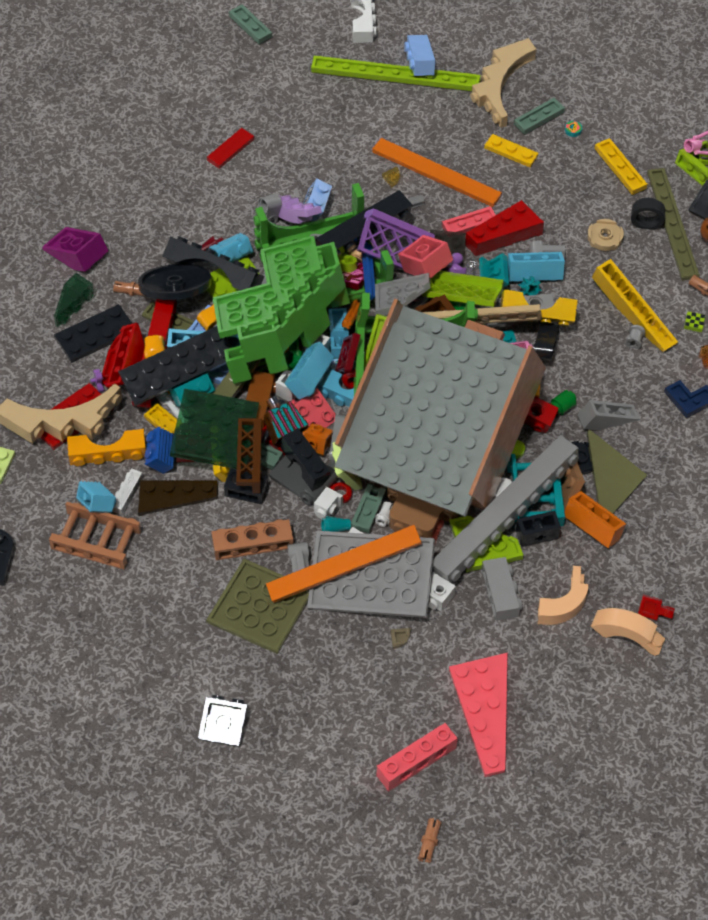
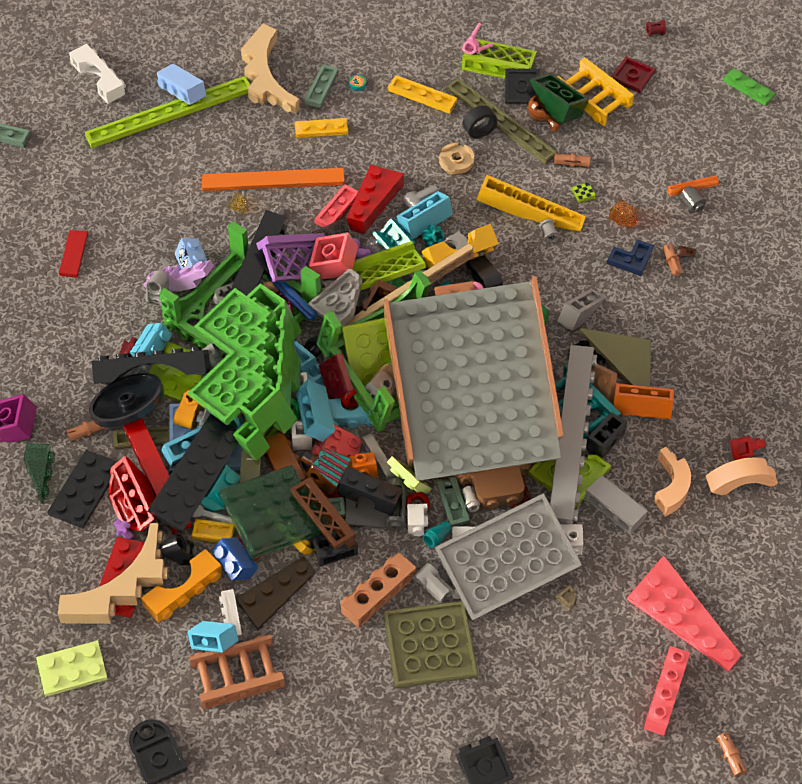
camera: 35 degrees left, 0 degrees up
(123, 416) = (178, 549): none -> black piece
(153, 345) = (158, 470): light orange piece -> none
(343, 563) = (480, 562): orange tile -> none
(351, 315) = (307, 343): orange axle -> none

